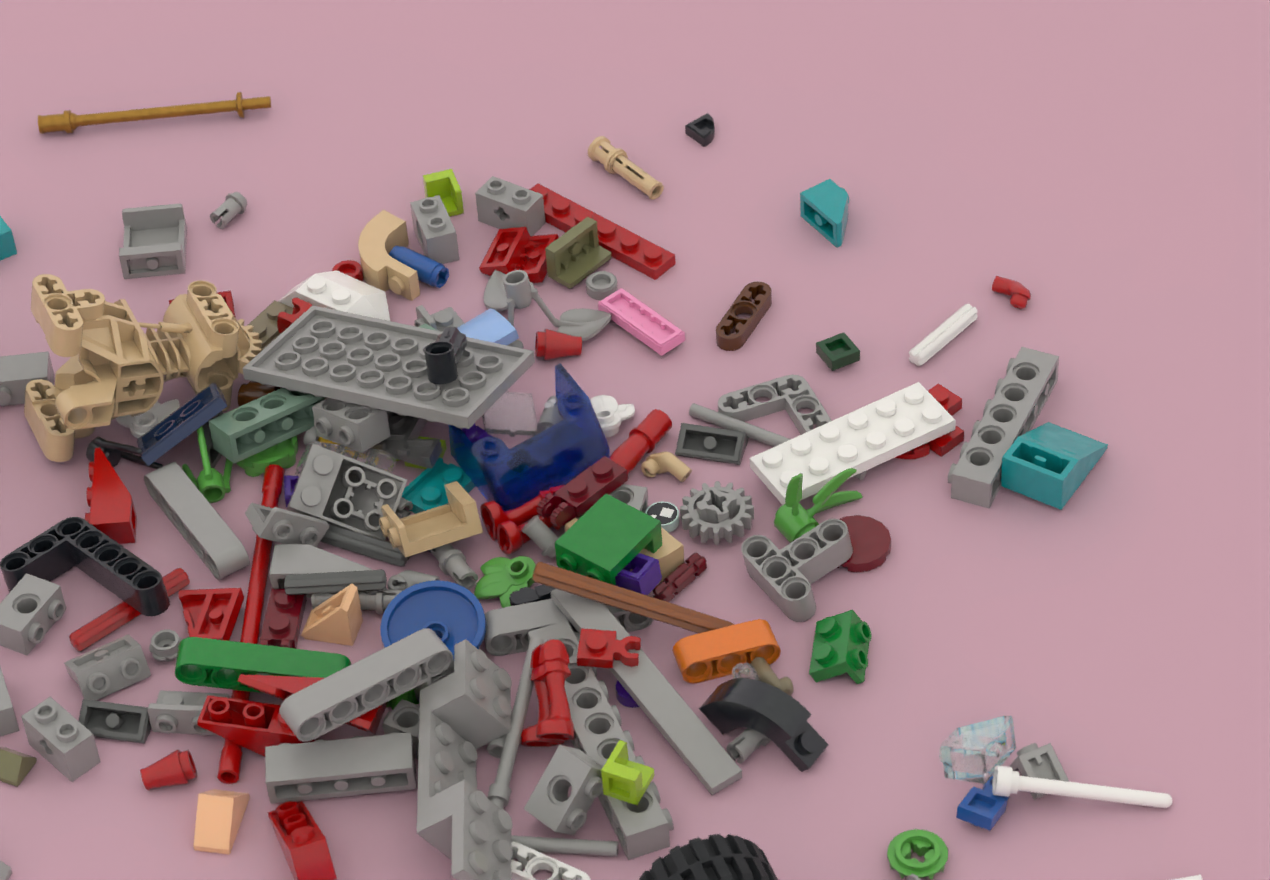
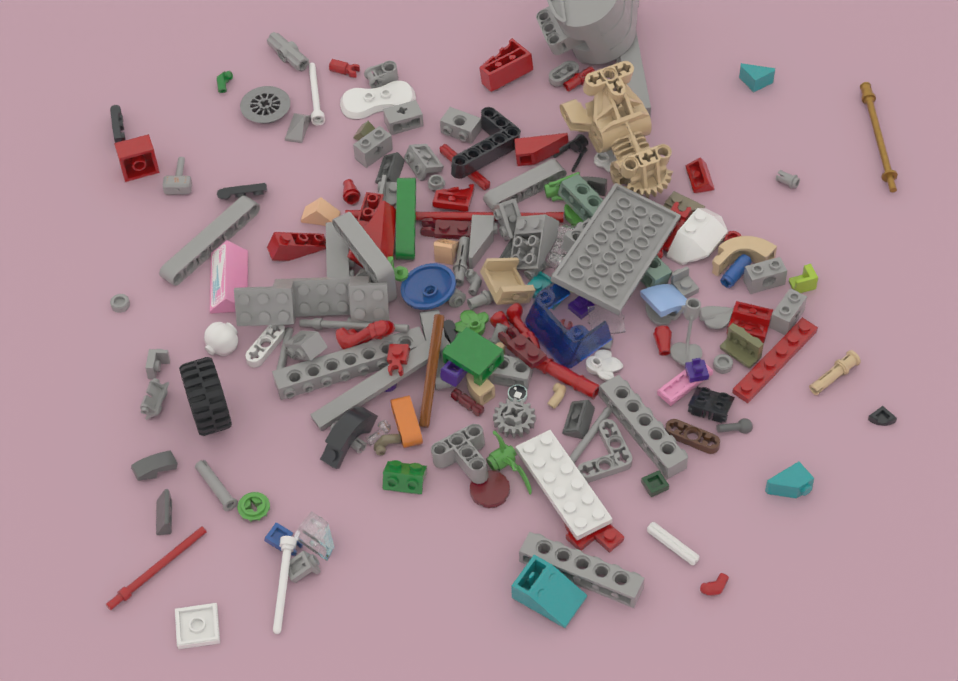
camera: 90 degrees right, 10 degrees up
(153, 241) = (756, 149): light grey panel -> none
(181, 423) = (587, 167): dark blue tile -> none
(334, 582) = (464, 243): dark grey axle -> none
(444, 356) = (601, 262): black piece -> none
(625, 778) = (305, 366): lime panel -> none
(628, 298) = (696, 370): none -> dark purple tile
(686, 292) = (712, 402): none -> black hinge
(721, 265) = (743, 426): none -> dark grey bar
(731, 363) = (622, 400): none -> light grey brick

